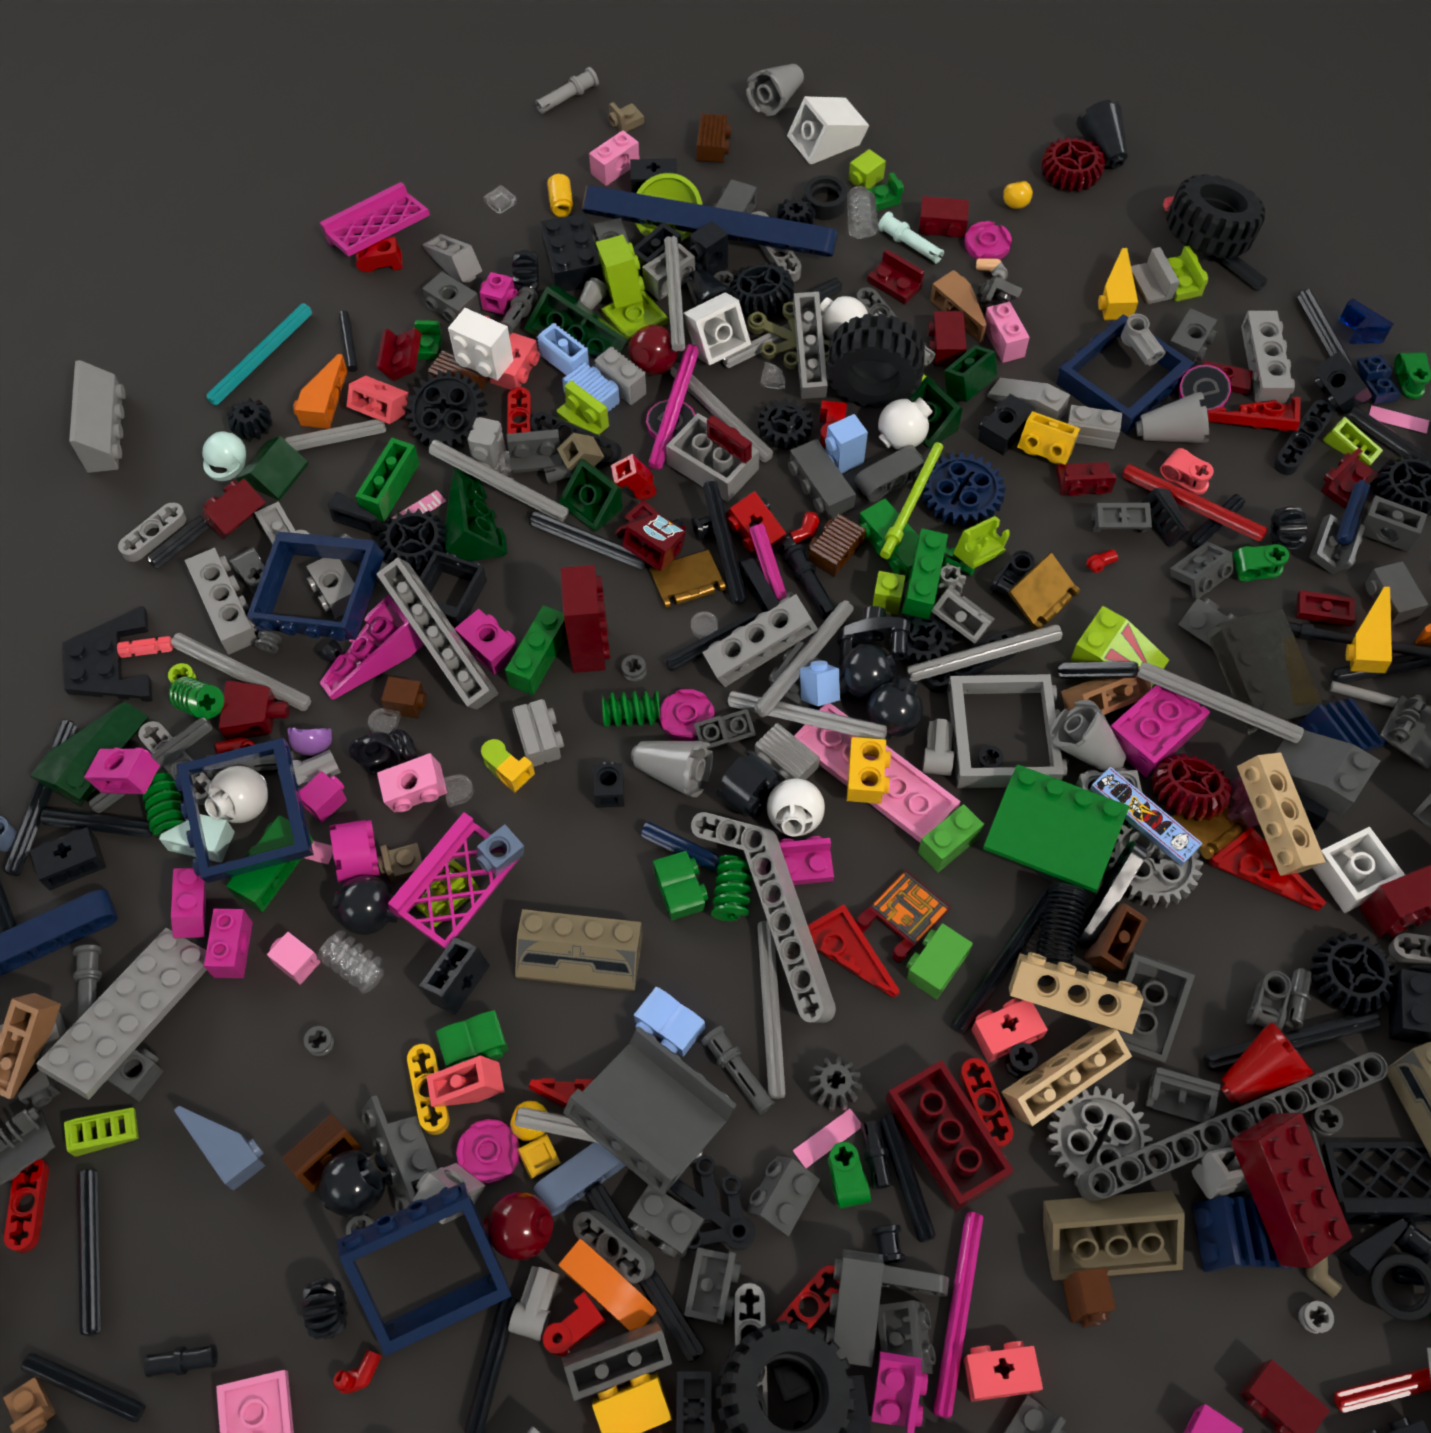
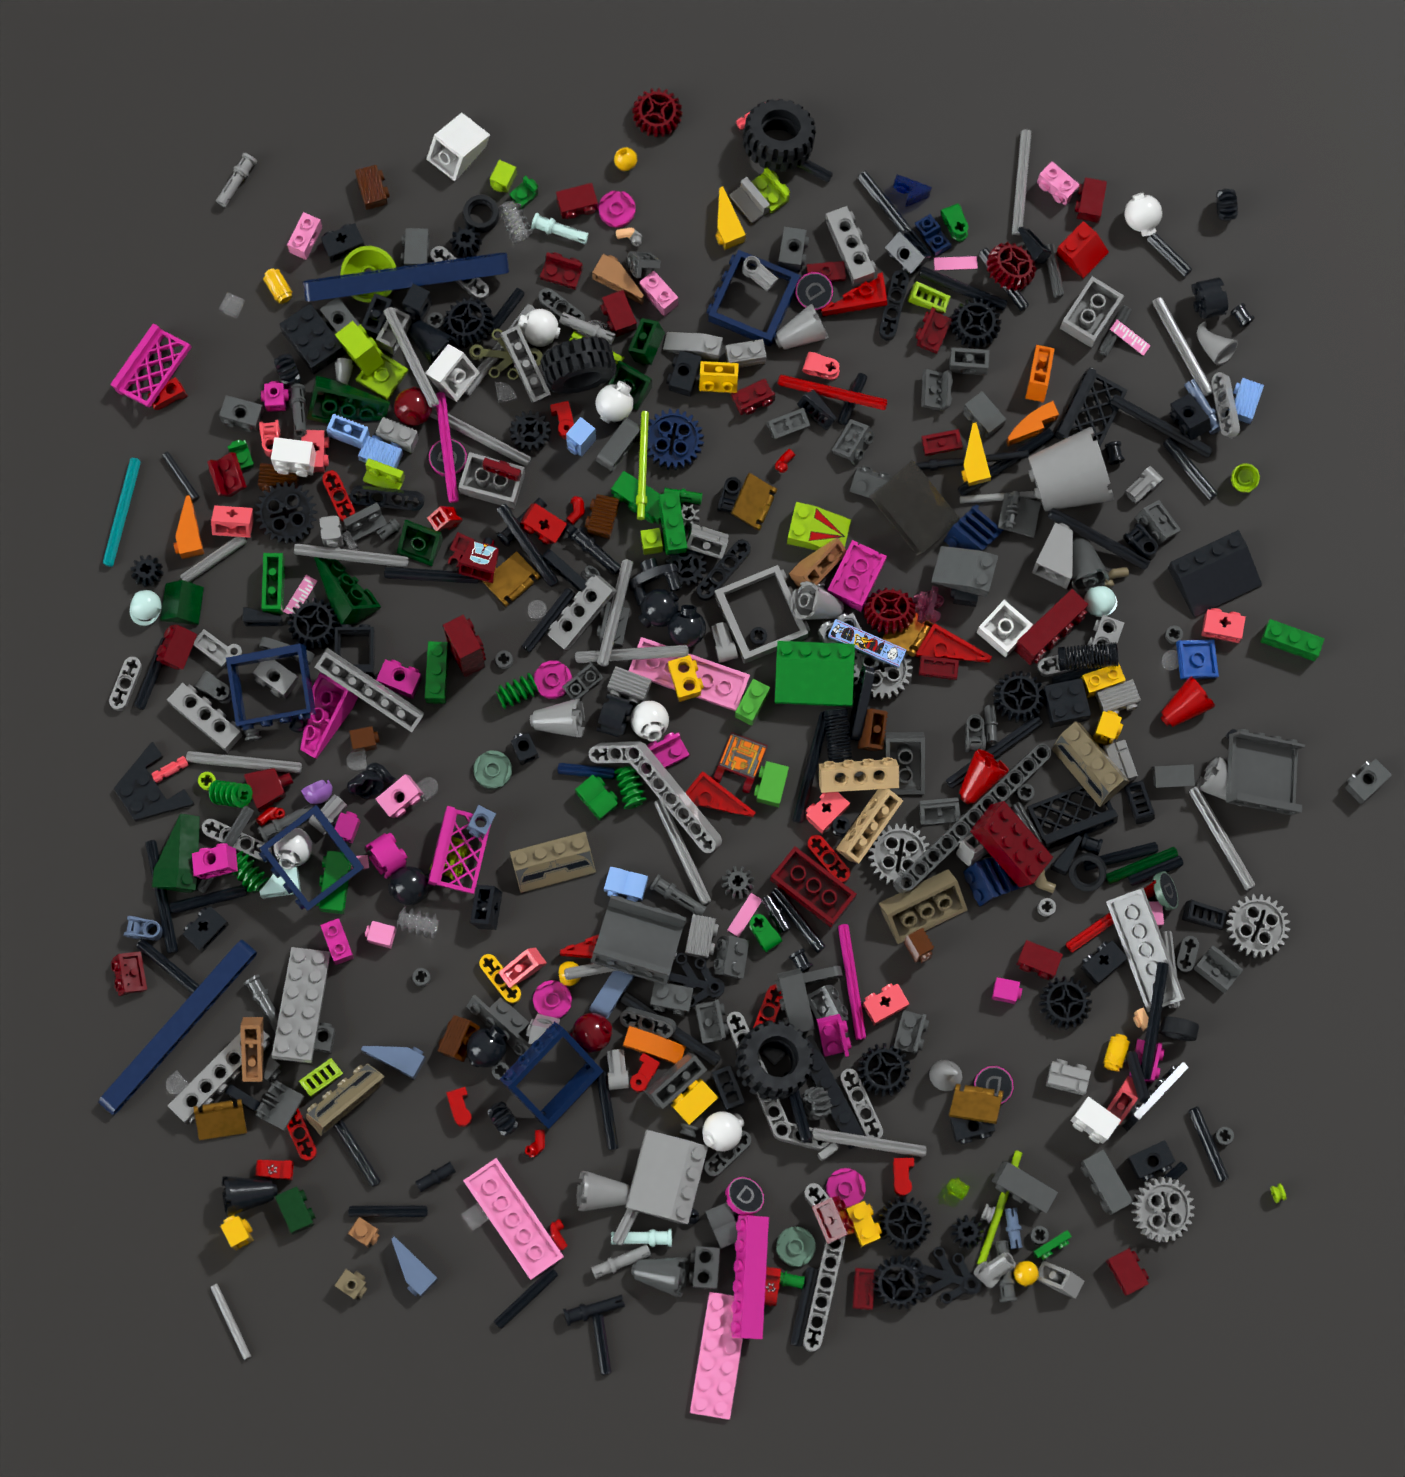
camera: 25 degrees left, 15 degrees up
(96, 417) = (40, 613): light grey slope -> none
(107, 1176) = (344, 1098): none -> dark tan slope
(188, 904) = (300, 927): dark pink brick -> none
(270, 1261) = (461, 1115): none -> red leg
(399, 862) = (416, 848): dark tan bracket -> none
(454, 257) = (223, 374): light grey slope -> none
(472, 1038) = (514, 941): green brick -> none
(505, 766) = (452, 761): leg -> none
(537, 733) = (462, 730): light grey brick -> none
(538, 1156) = (583, 991): yellow tile -> none
(555, 798) = (492, 769): none -> sand green tile
(579, 447) = (399, 512): dark tan brick -> none
(625, 118) = (293, 188): dark tan bracket -> none
(748, 1144) = (700, 936): none -> light grey brick
(767, 560) = (563, 550): dark pink axle -> none
(773, 88) = (401, 120): light grey cone -> none
(819, 683) = (632, 628): light blue brick -> none
(821, 480) = (573, 468): dark grey brick -> none
(981, 543) = (701, 481): lime hinge -> none
(984, 653) = (730, 564): light grey axle -> none
(1098, 670) = (806, 550): black axle -> none
(1105, 128) = (674, 77): black cone -> none
(1220, 702) = (890, 548): light grey axle -> none
(1240, 890) = (938, 667): none -> dark red plate
(1257, 563) = (887, 424): green piece -> none
(1280, 814) = (948, 611): tan brick -> none
(1289, 527) = (901, 391): black gear -> none
(1353, 512) = (941, 361): dark blue axle -> none

